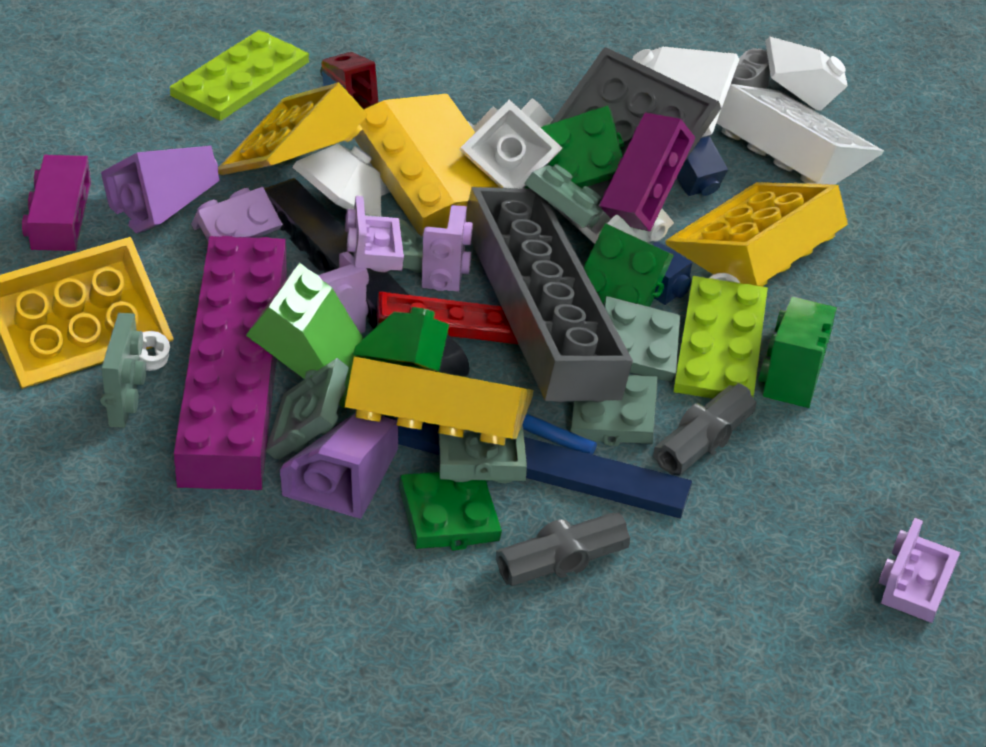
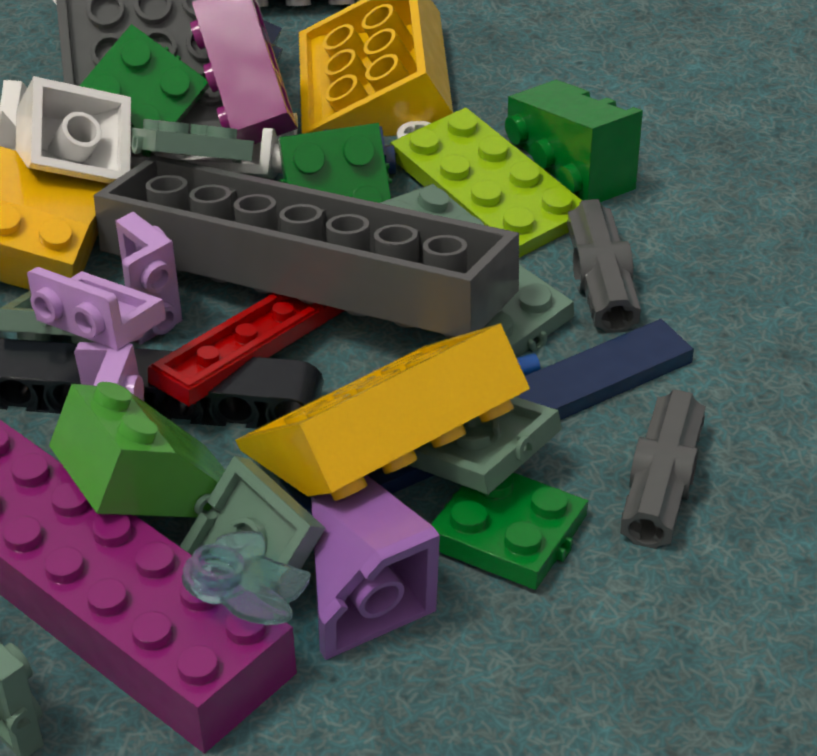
camera: 45 degrees left, 0 degrees up
(262, 414) = (244, 579): none -> clear light blue plate
(407, 340) = (255, 390): green slope -> none

